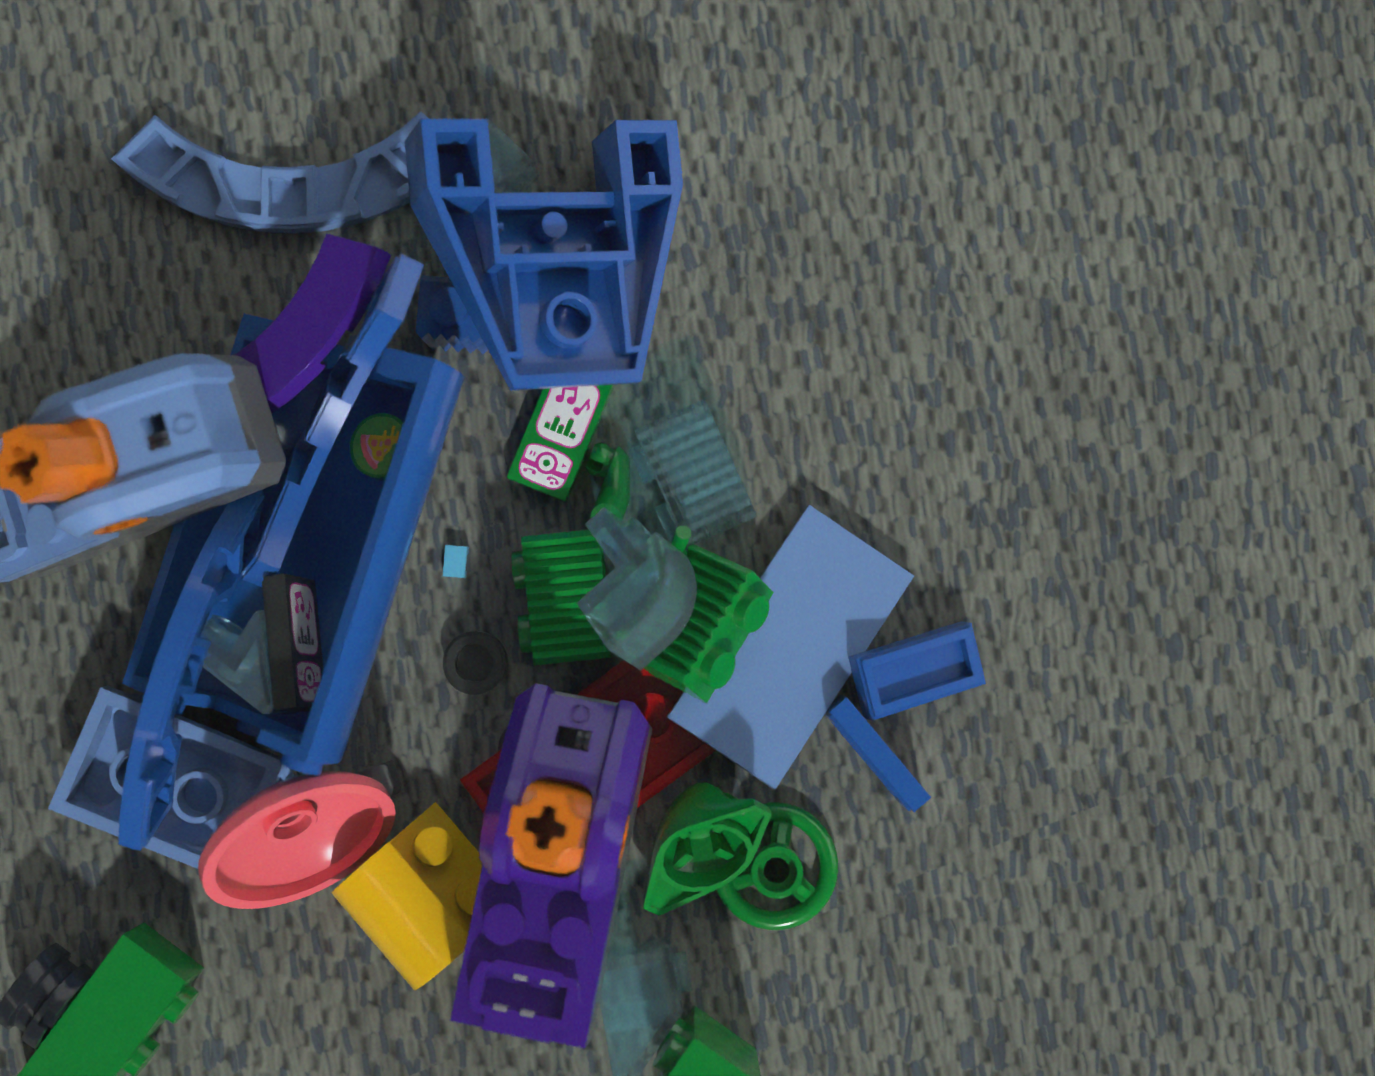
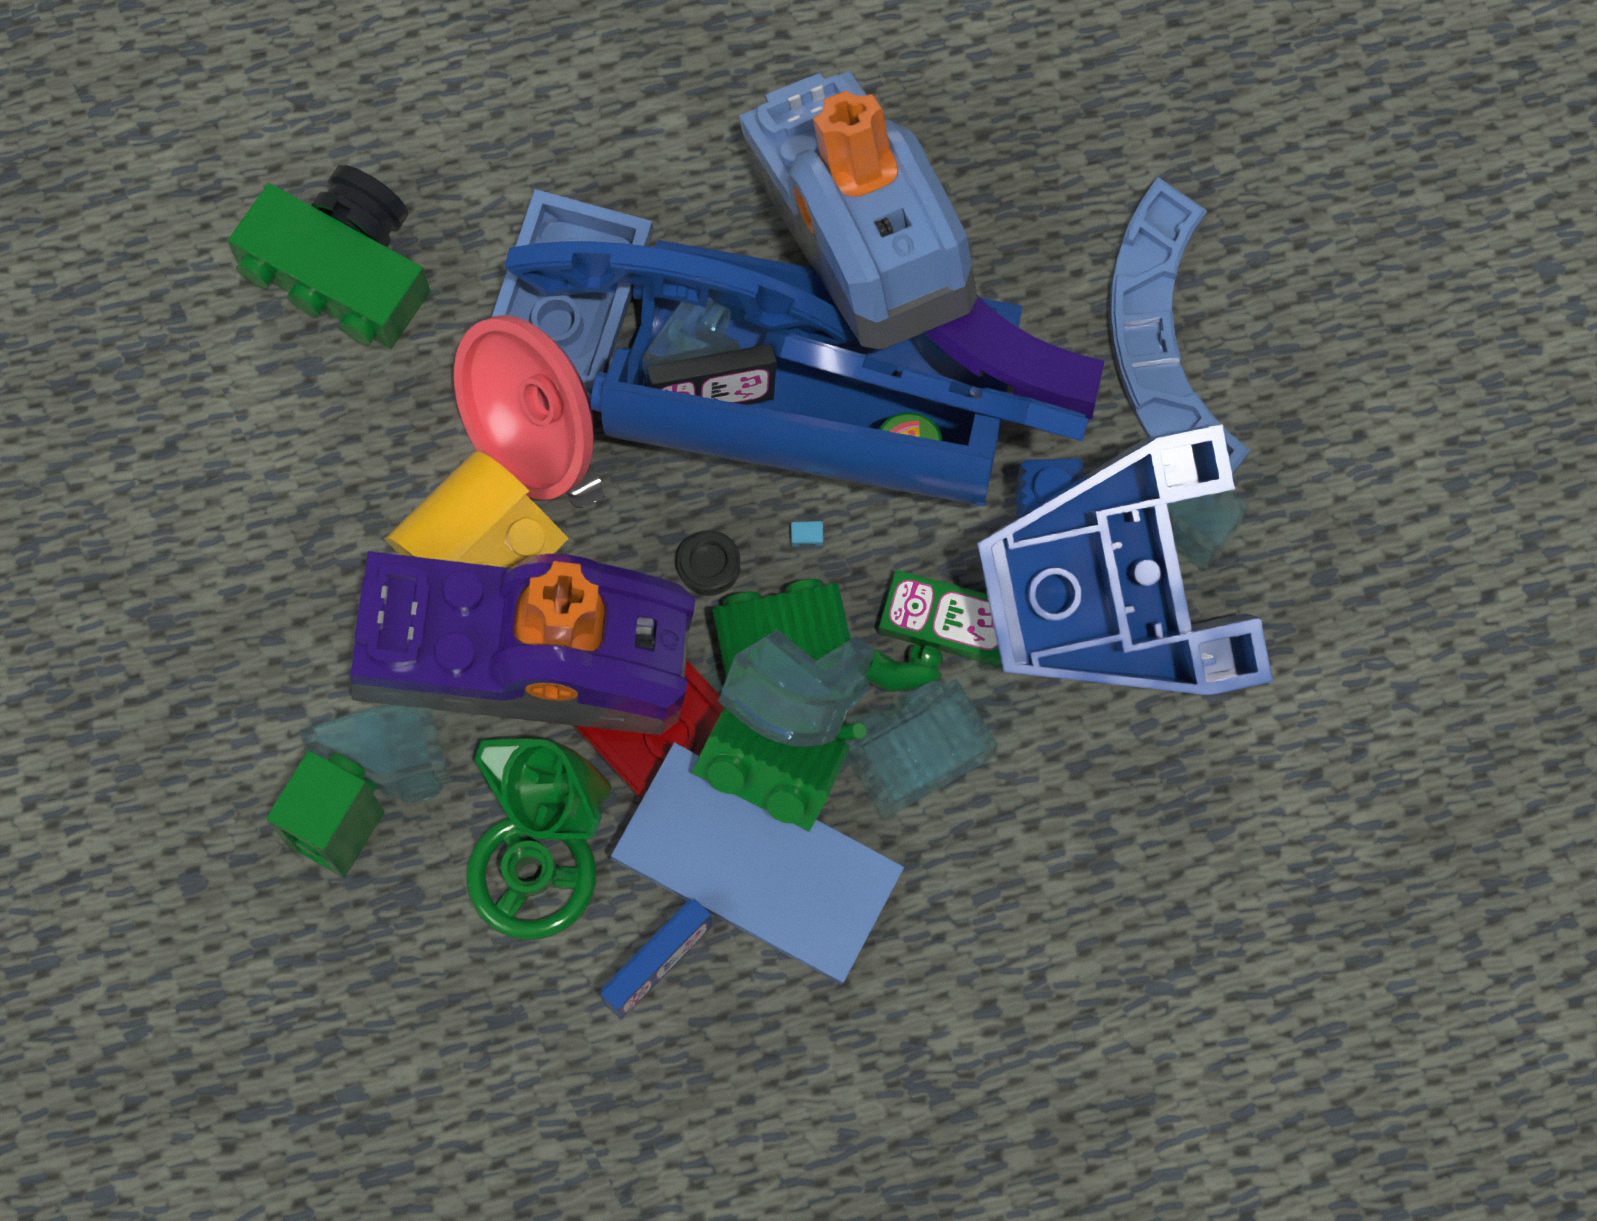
camera: 85 degrees right, 15 degrees down
(917, 670) = (745, 994): blue tile -> none

